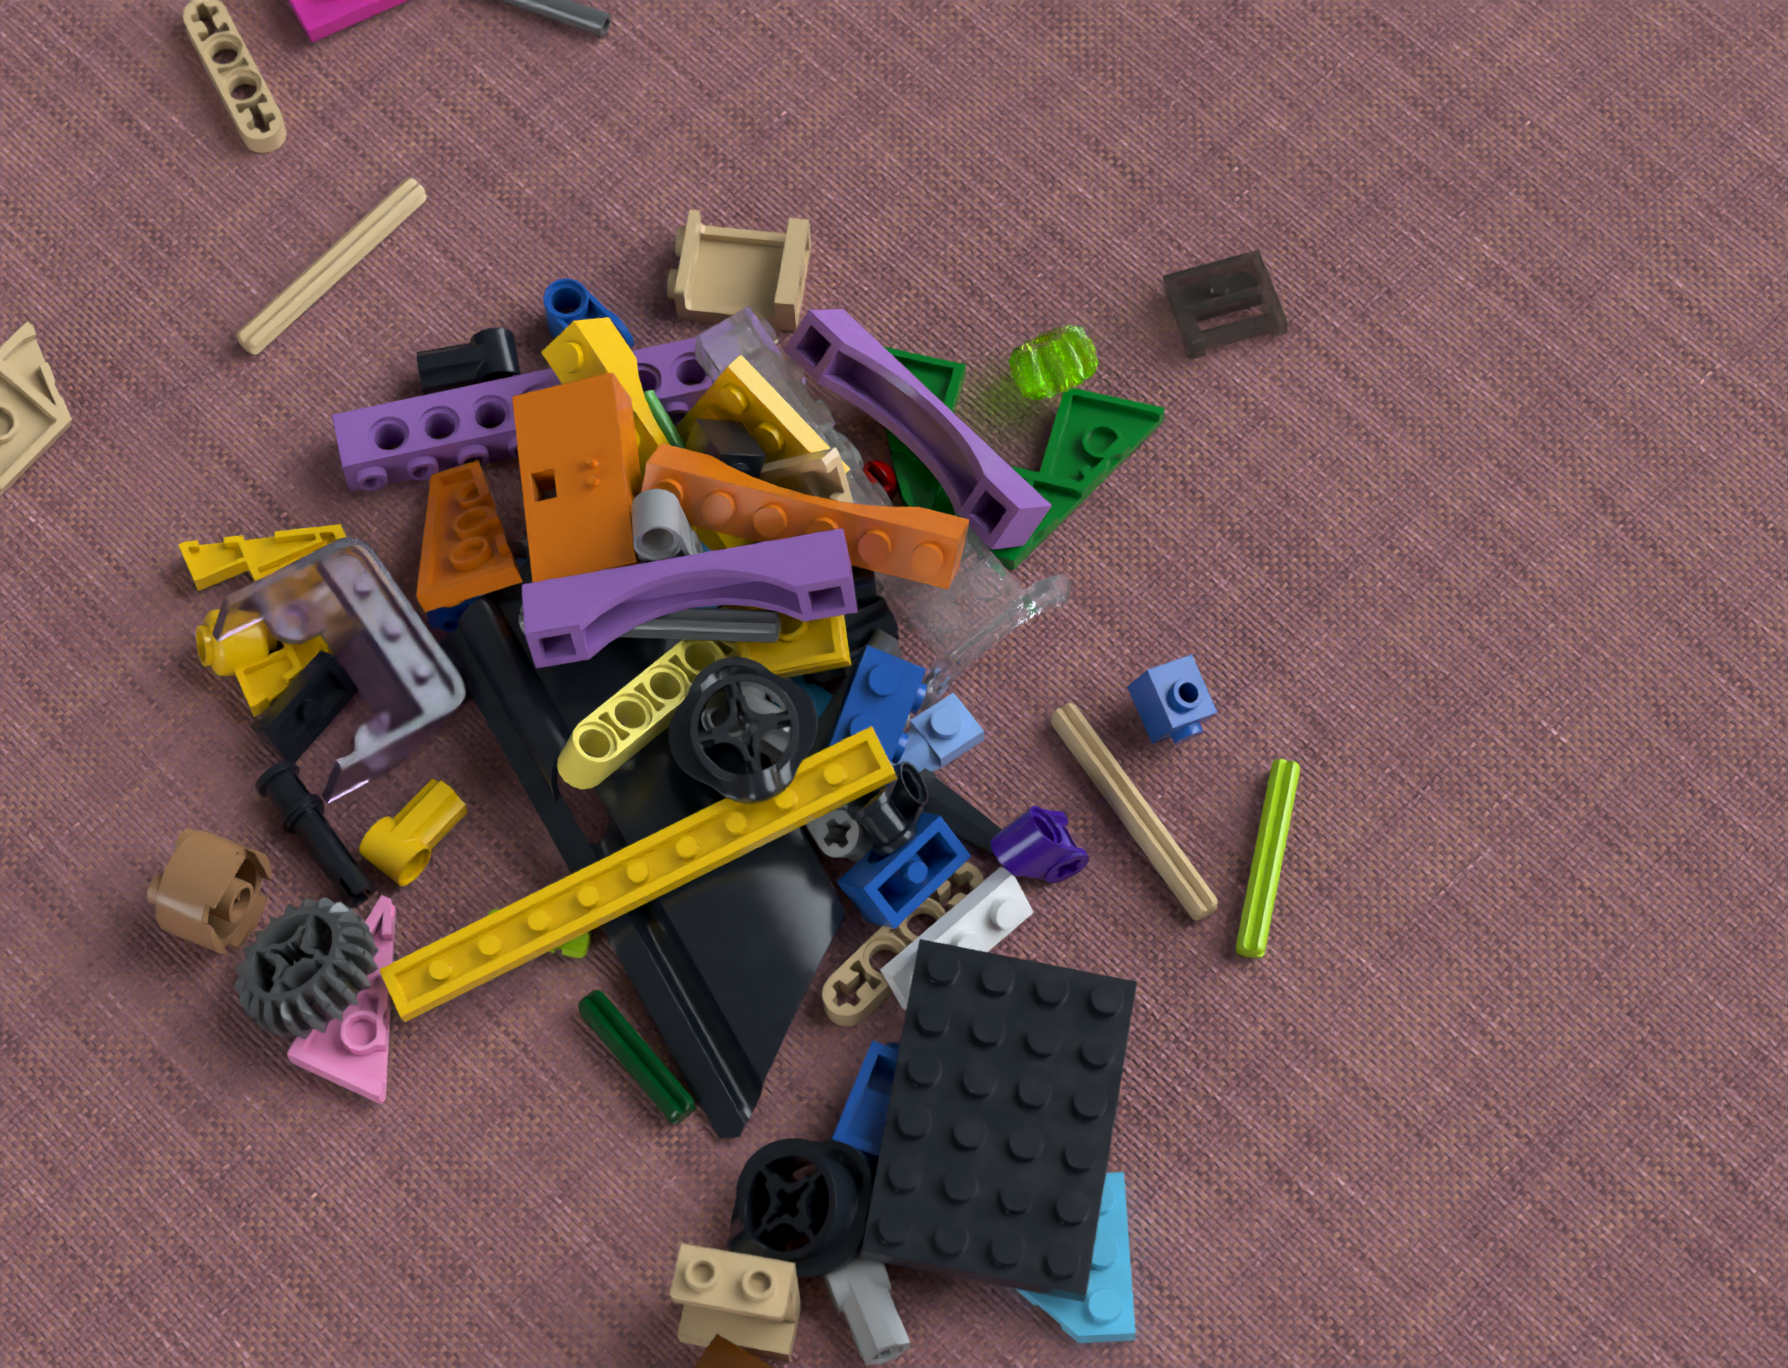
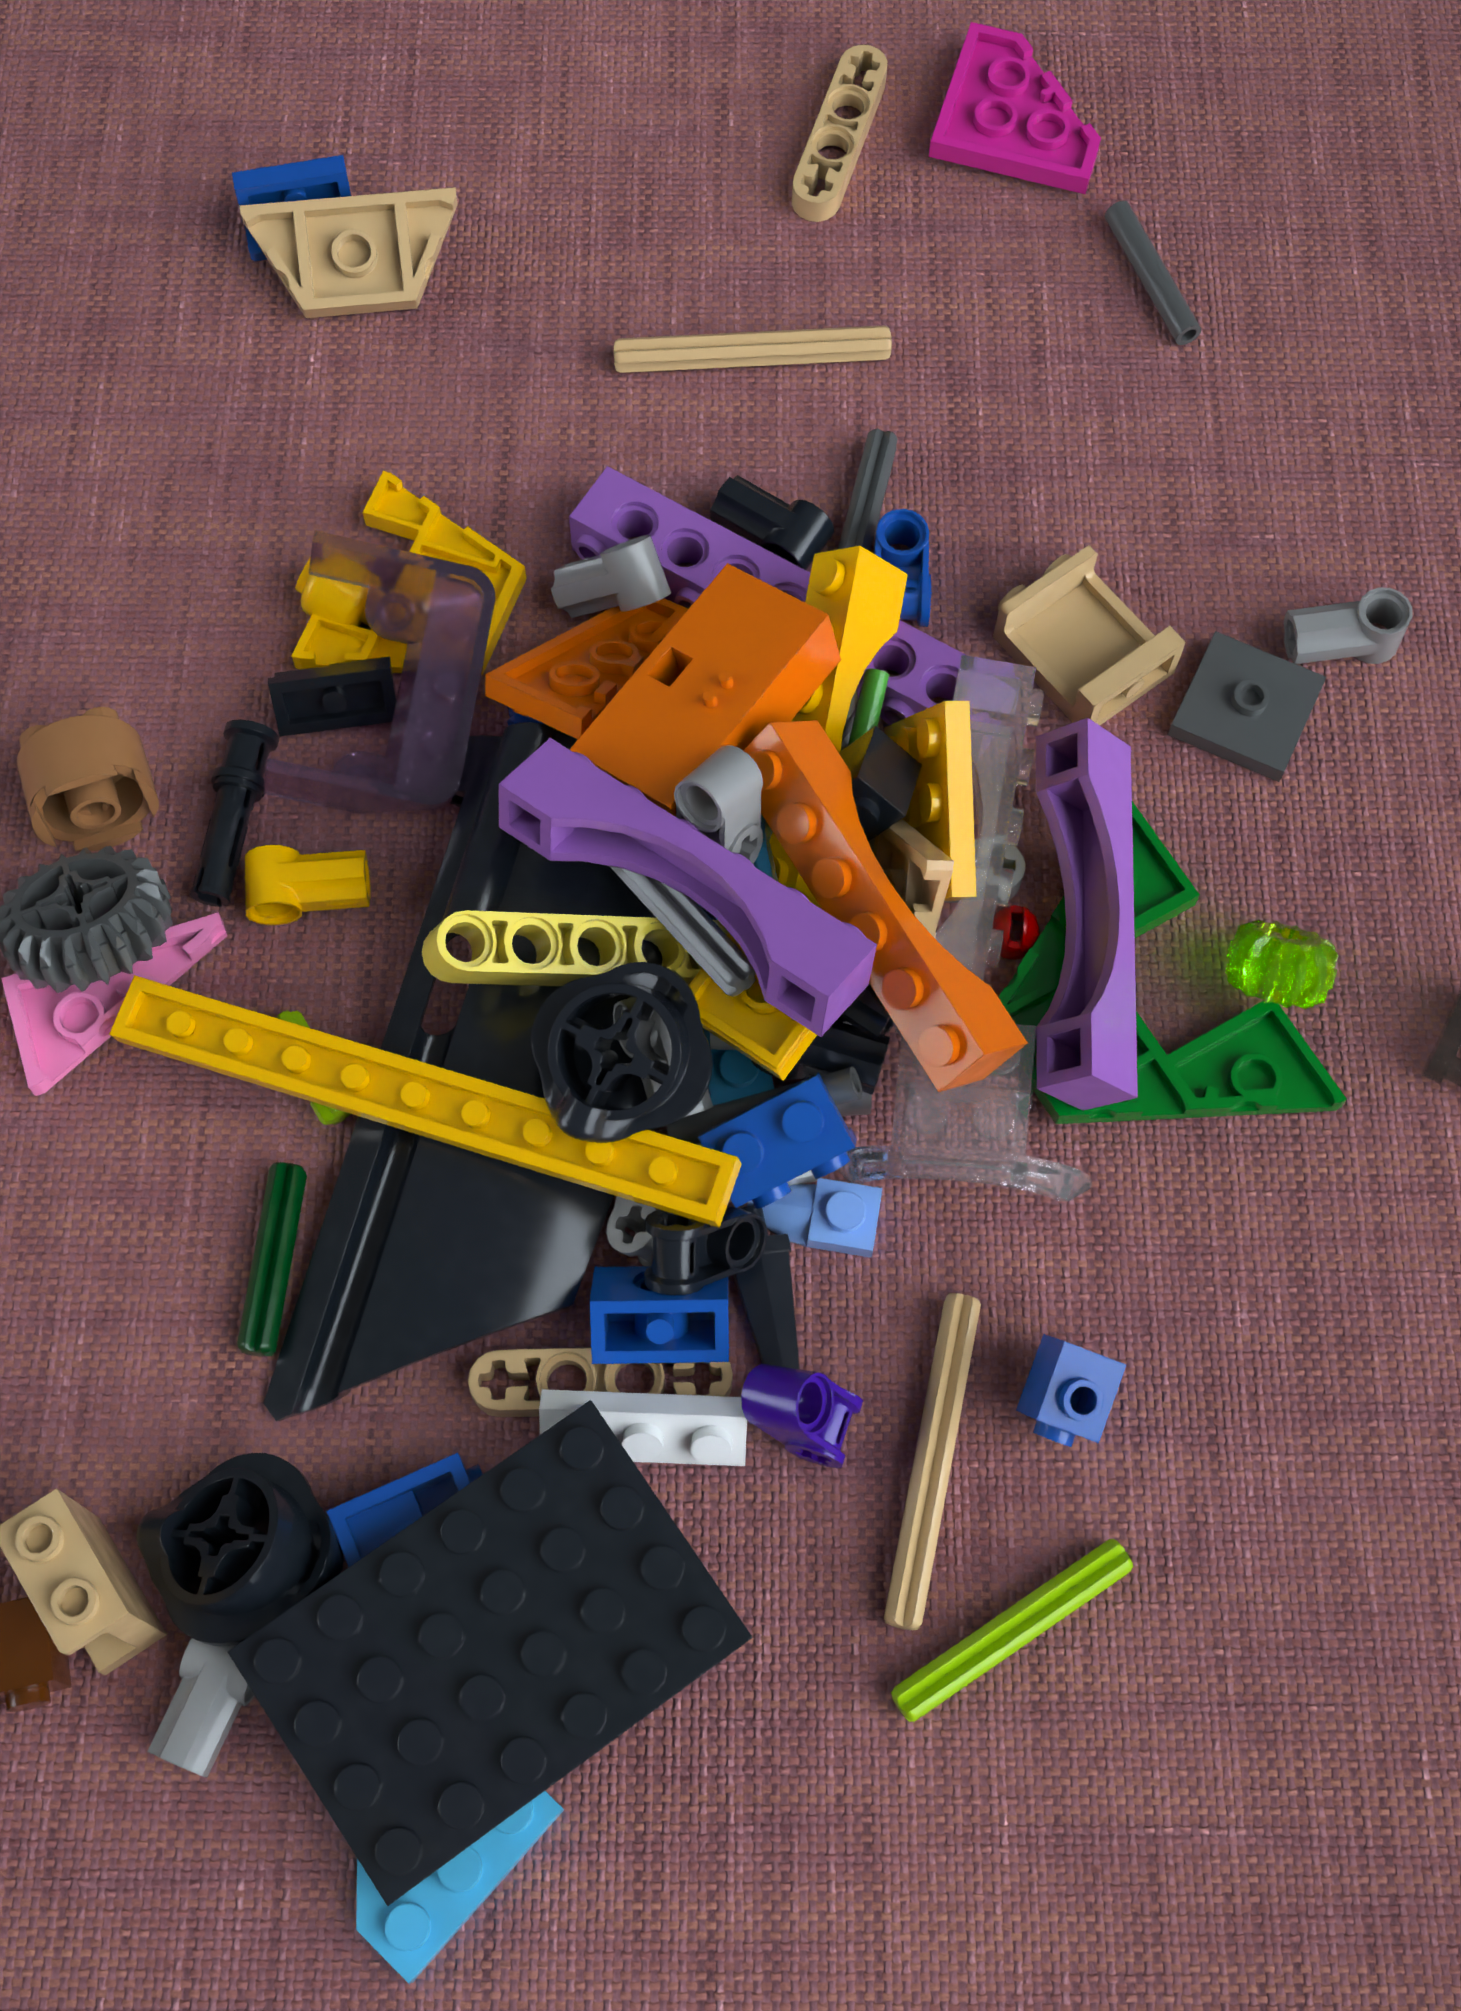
camera: 40 degrees right, 5 degrees up
(418, 472) = (620, 576): none -> light grey piece
(511, 300) = (869, 490): none -> dark grey axle
(877, 229) = (1247, 706): none -> dark grey plate
(891, 132) = (1347, 629): none -> light grey piece

